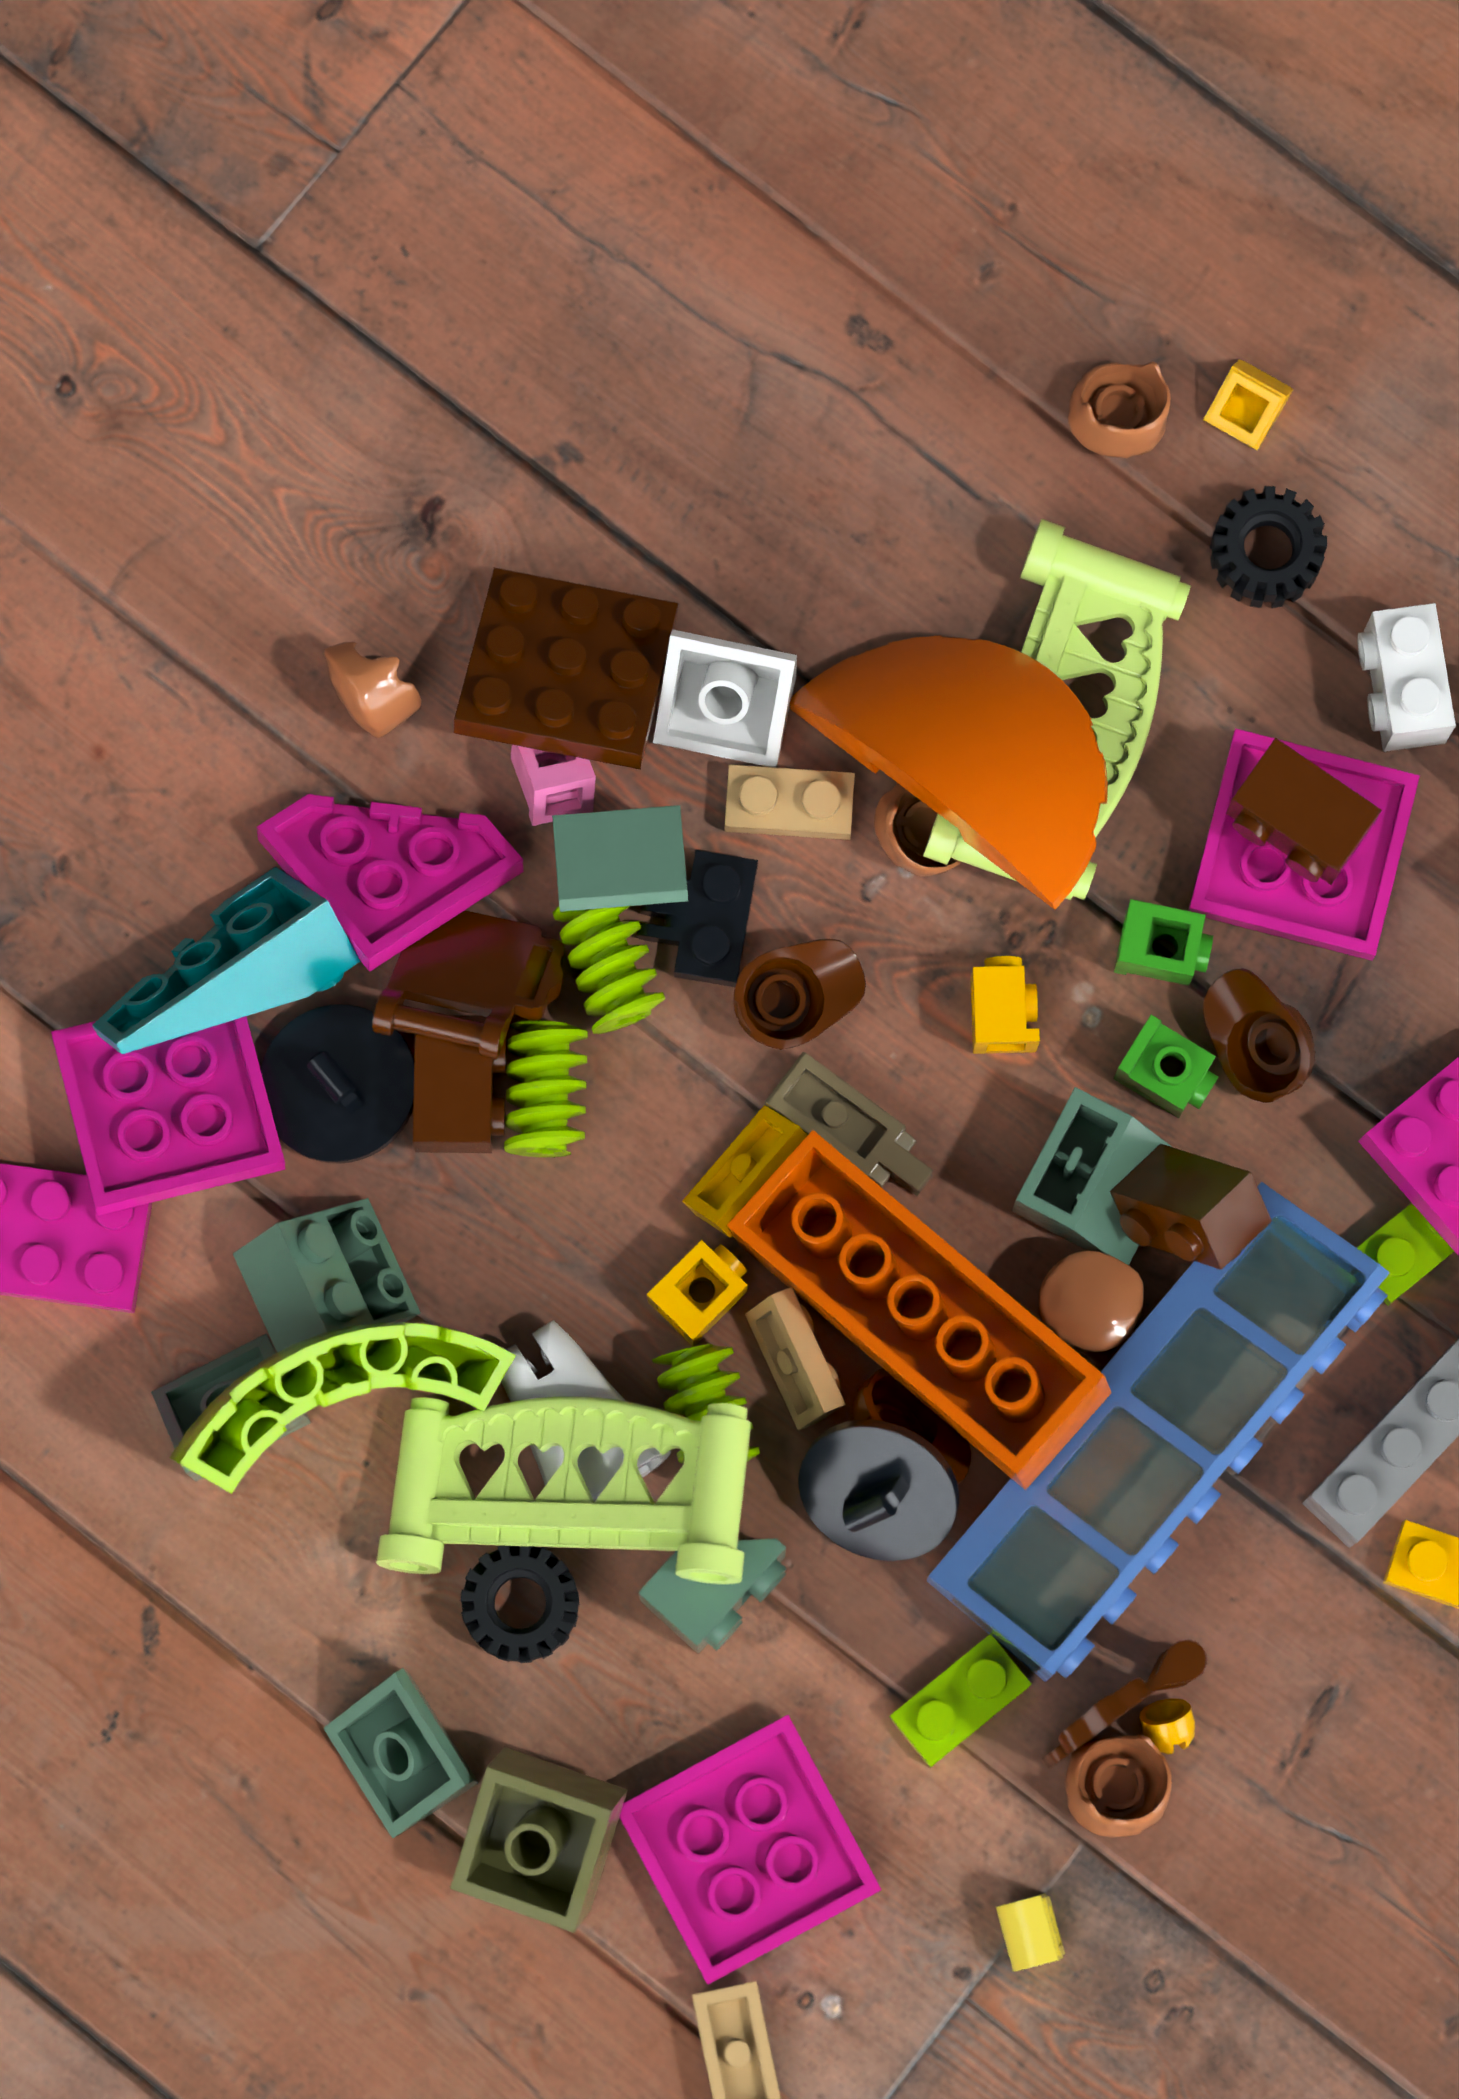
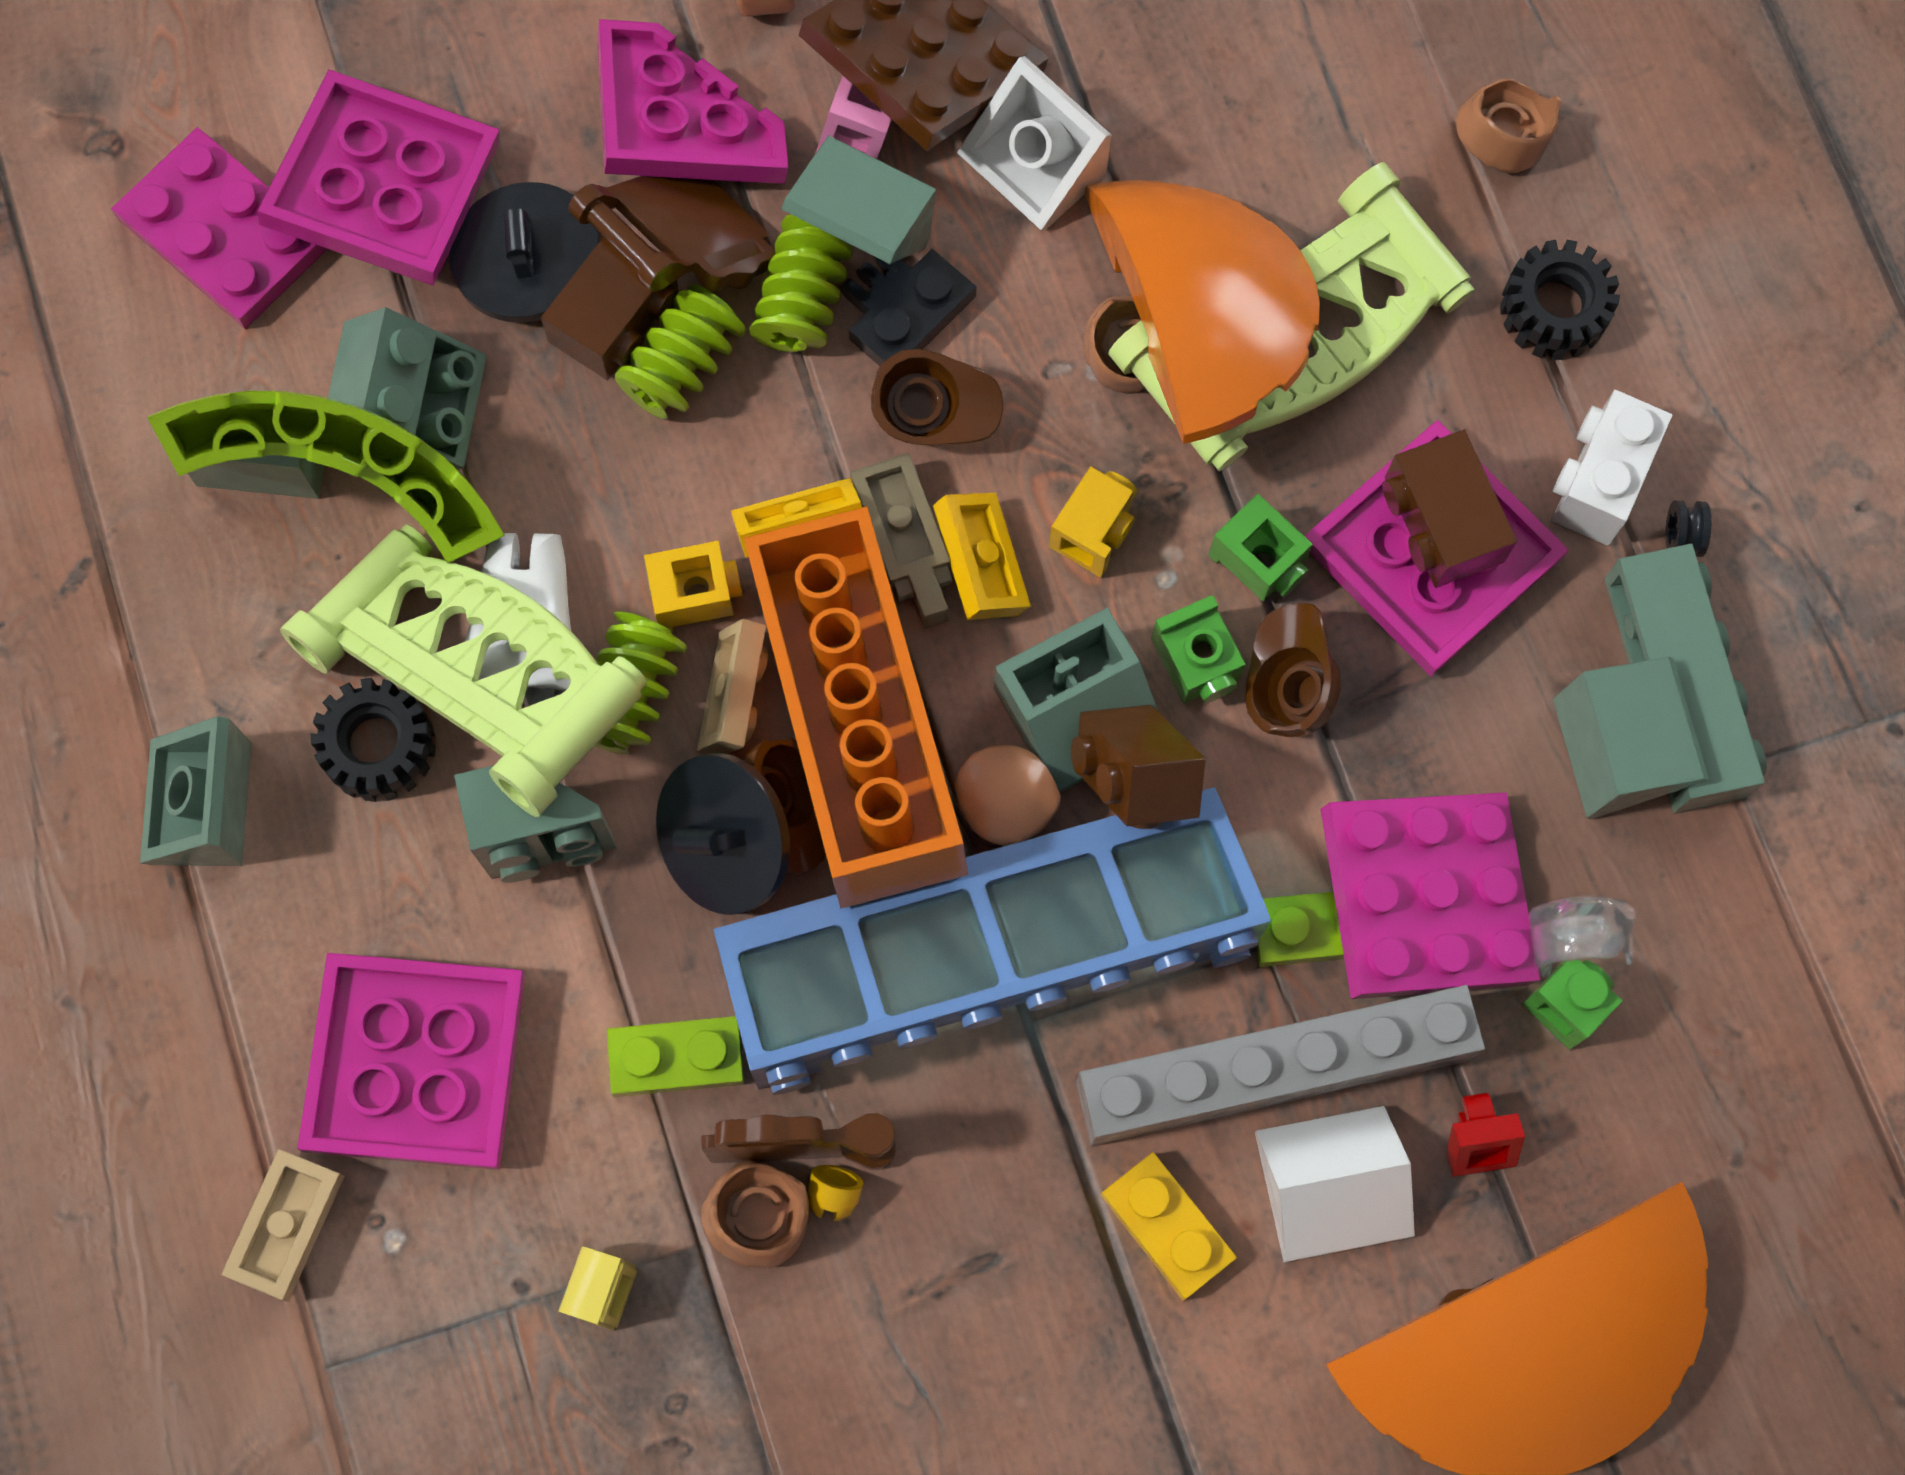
camera: 30 degrees right, 5 degrees down
(264, 951) = (538, 113): teal wedge -> none
(538, 1839) = (242, 933): olive brick -> none
(789, 802) = (1034, 261): tan plate -> none
(927, 1102) = (981, 555): none -> yellow plate
(1248, 404) = (1615, 185): yellow slope -> none

